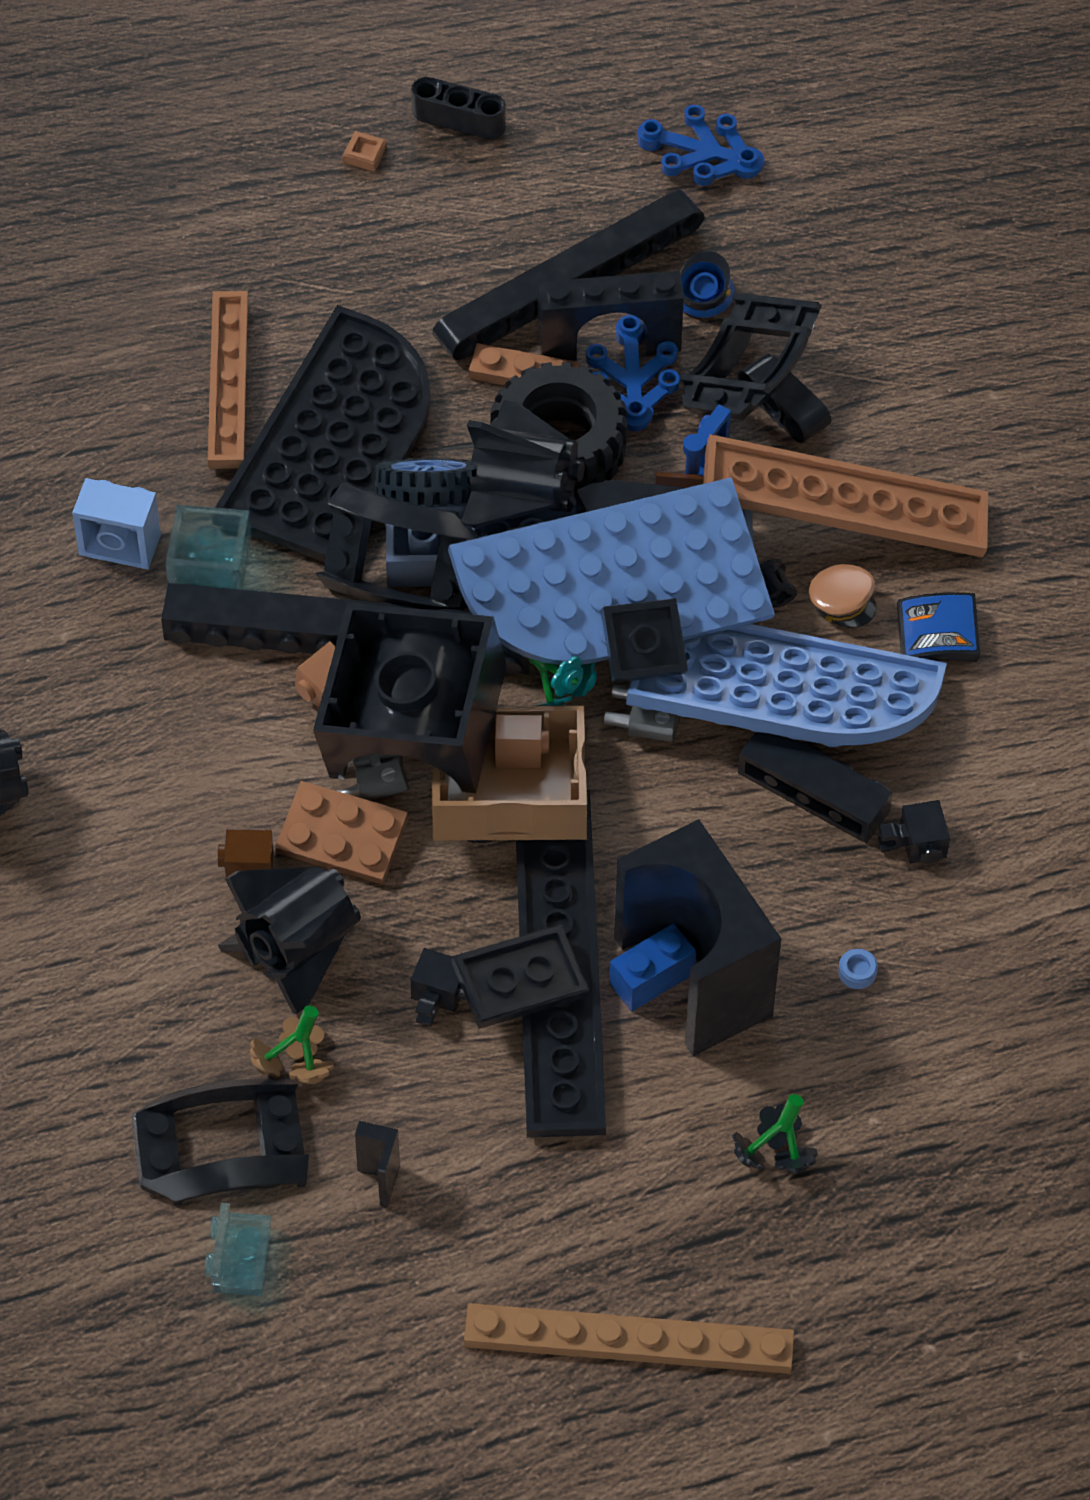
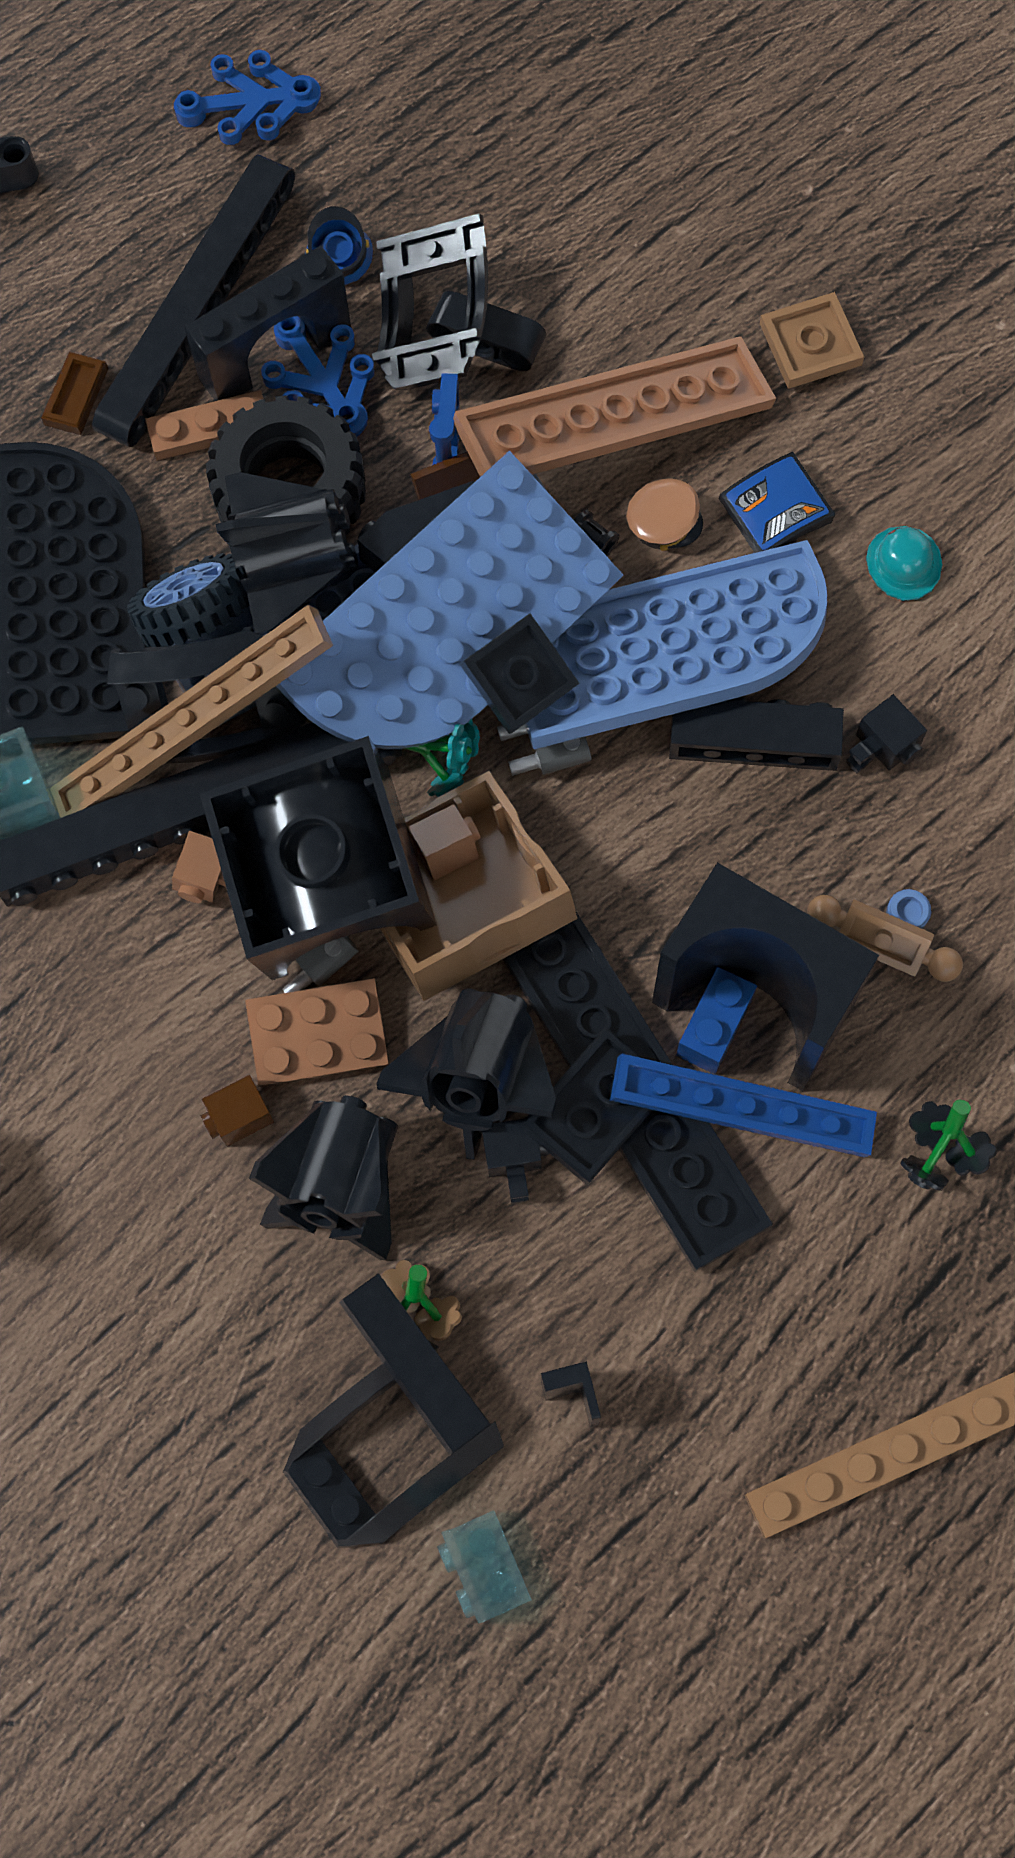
camera: 25 degrees left, 15 degrees up
(271, 1079) = (414, 1363): none -> black tile
(381, 553) = (195, 712): none -> medium nougat plate
(434, 302) = (74, 393): none -> reddish brown tile
(446, 898) = (476, 1066): none -> black brick
(634, 1031) = (743, 1105): none -> blue plate
(825, 975) = (894, 940): none -> medium nougat plate
(1018, 718) = (904, 562): none -> teal hat
(1045, 520) = (811, 340): none -> medium nougat plate

